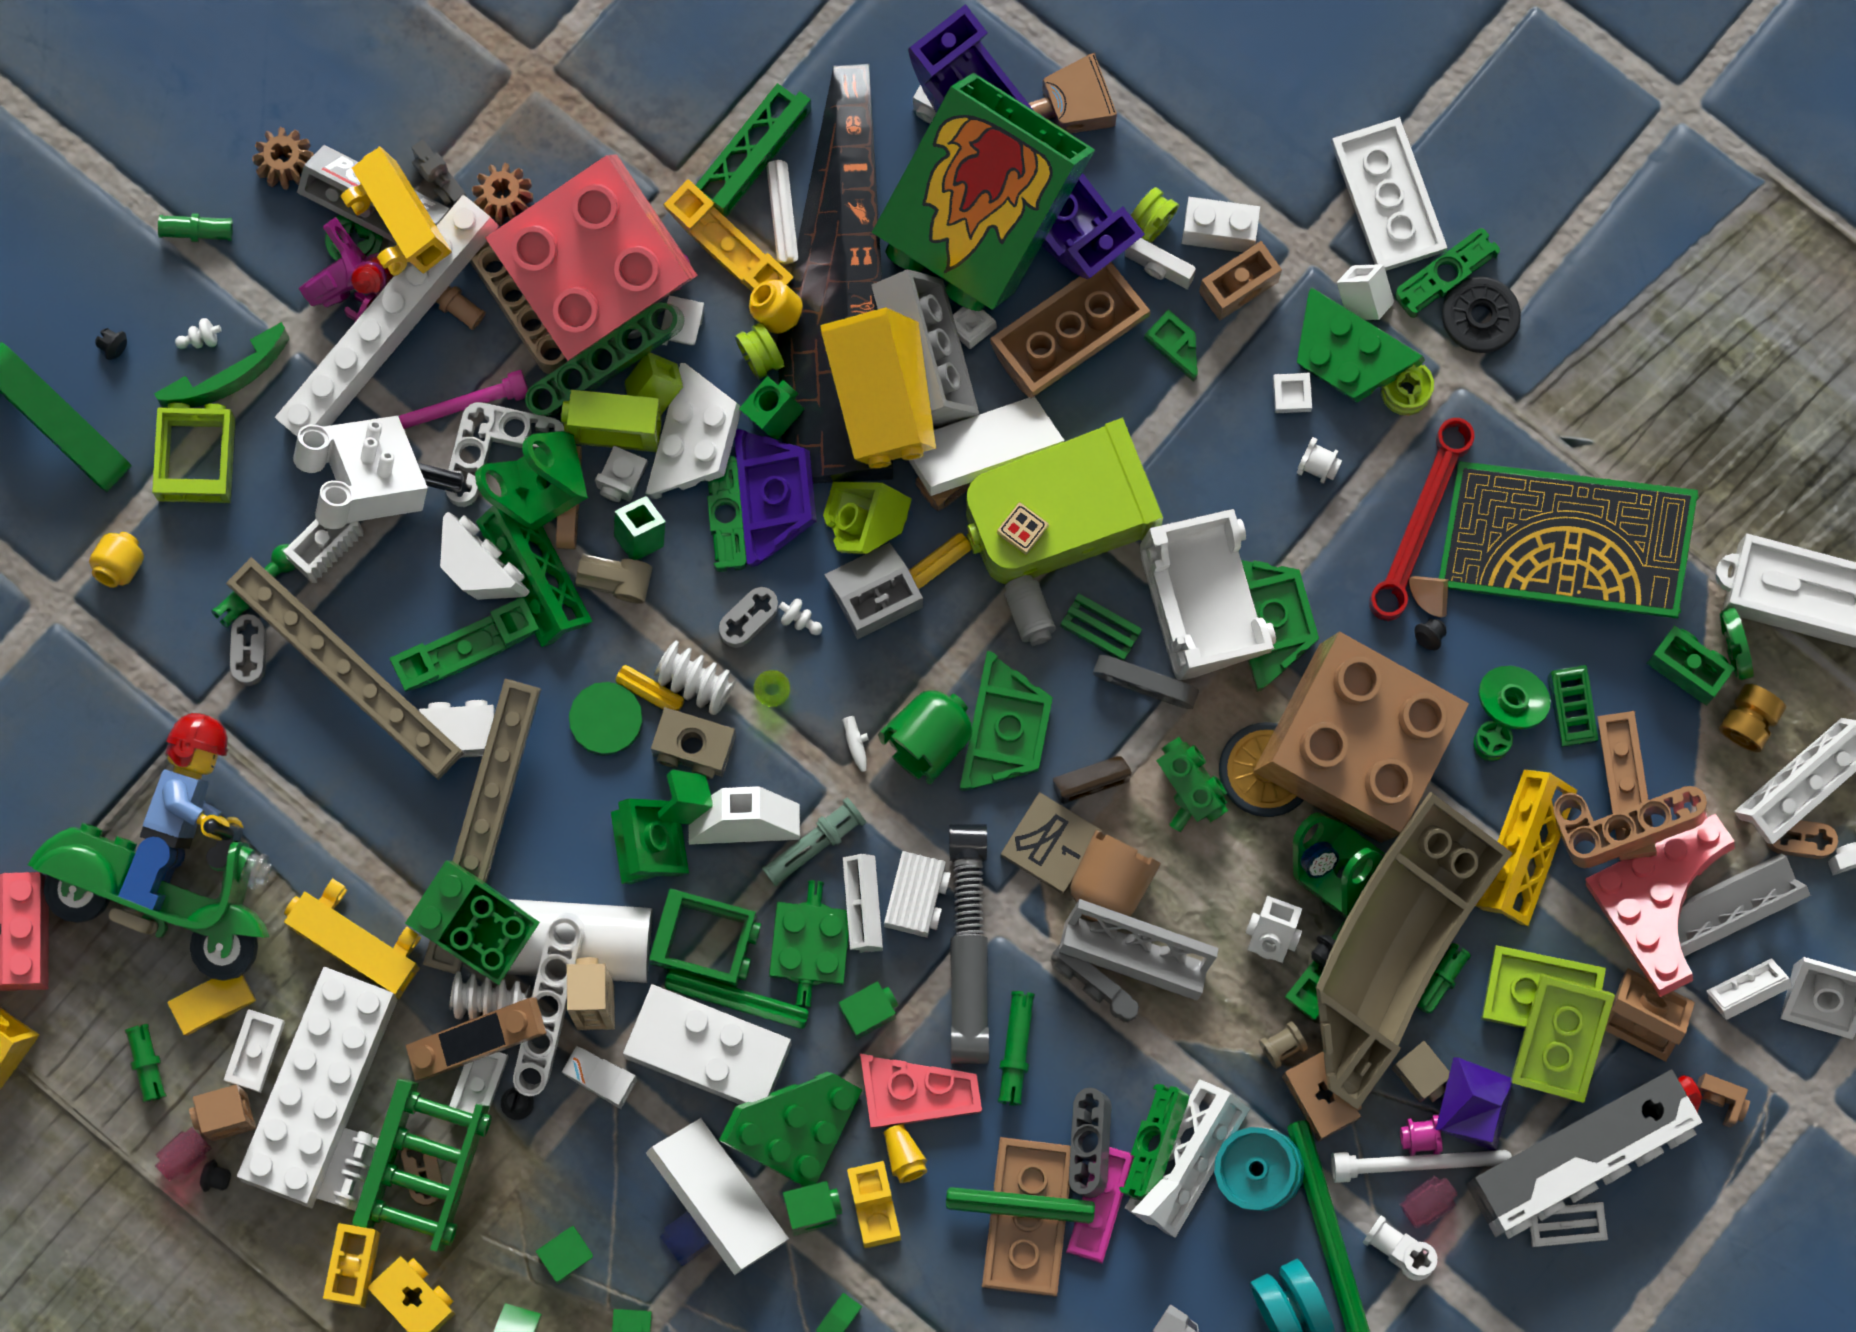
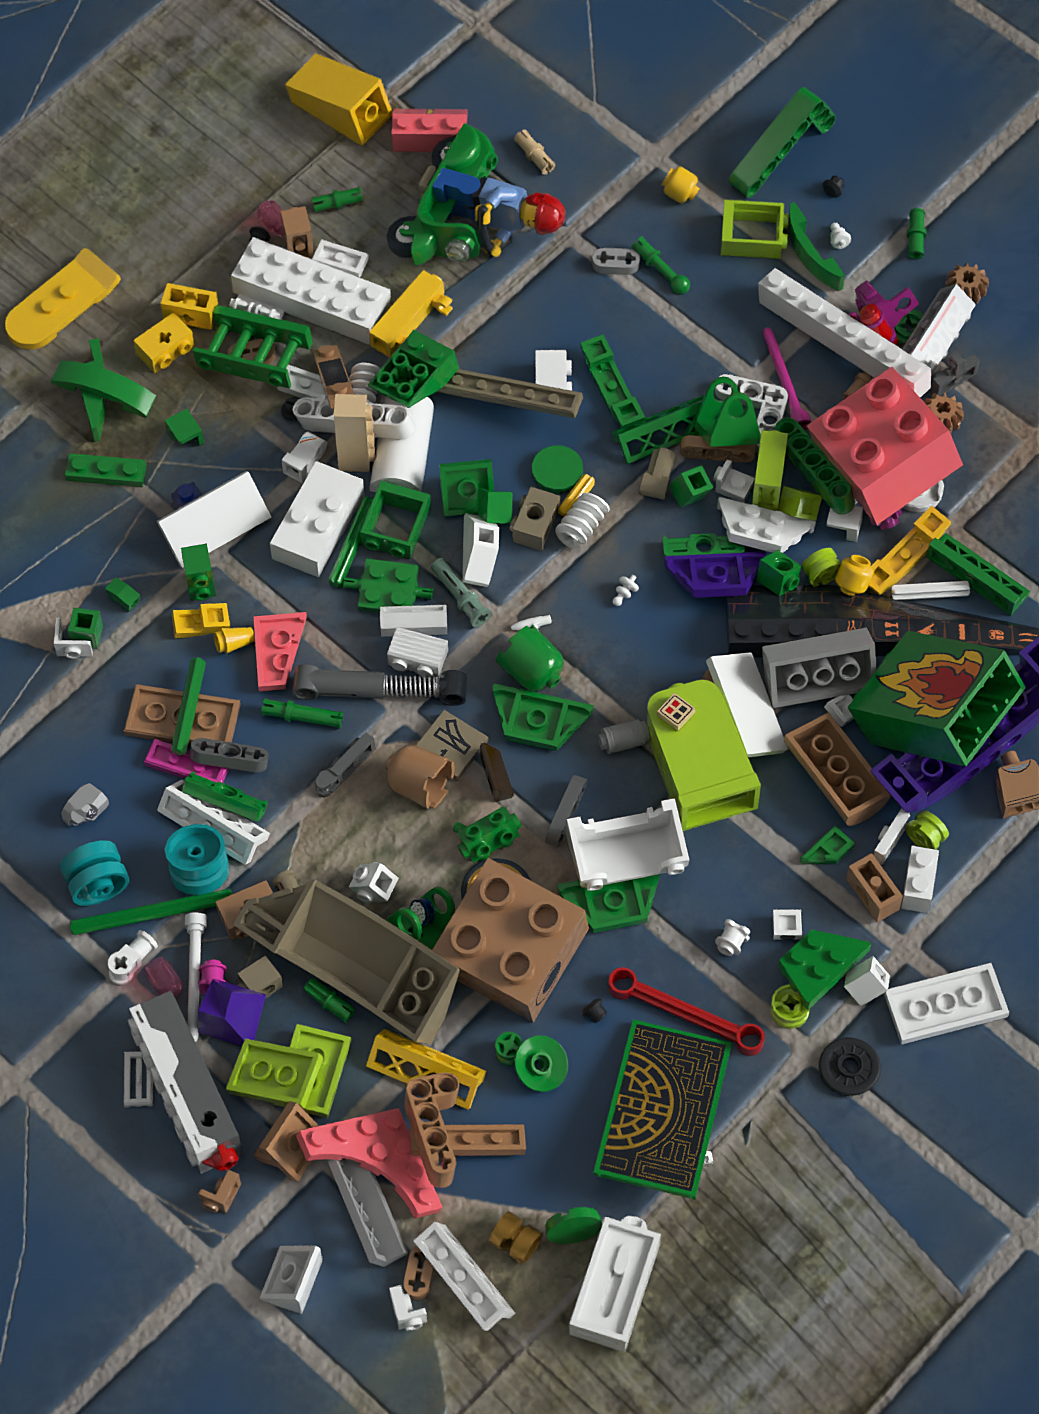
camera: 95 degrees right, 15 degrees down
(53, 775) = (534, 152): none -> tan pin
(210, 1002) = (374, 234): yellow slope -> none
(321, 546) = (687, 299): white brick -> none
(345, 668) = (595, 307): dark tan tile -> none
(371, 470) = (736, 323): white piece -> none
(401, 211) = (917, 329): yellow brick -> none
(476, 563) = (671, 387): white slope -> none
(754, 624) = (629, 557): light grey beam -> none
(770, 677) = (570, 565): clear neon green plate -> none
(794, 1126) = (256, 566): green plate -> none
(865, 515) = (696, 631): lime slope -> none
(868, 1009) = (336, 619): green brick -> none
(874, 590) = (640, 634): light grey slope -> none
(881, 385) = (785, 620): yellow slope -> none
(940, 559) = (659, 674): yellow axle -> none
(1109, 616) = (621, 768): green tile -> none
(1134, 953) = (363, 788): light grey fence -> none
(1158, 1203) = (177, 788): white piece -> none
(1426, 284) = (897, 1057): green piece -> none
(1430, 594) = (625, 1013): medium nougat tile -> none
(1583, 689) = (532, 1100): green slope -> none
(1691, 665) = (560, 1190): green brick -> none
(1749, 989) = (303, 1218): white plate -> none

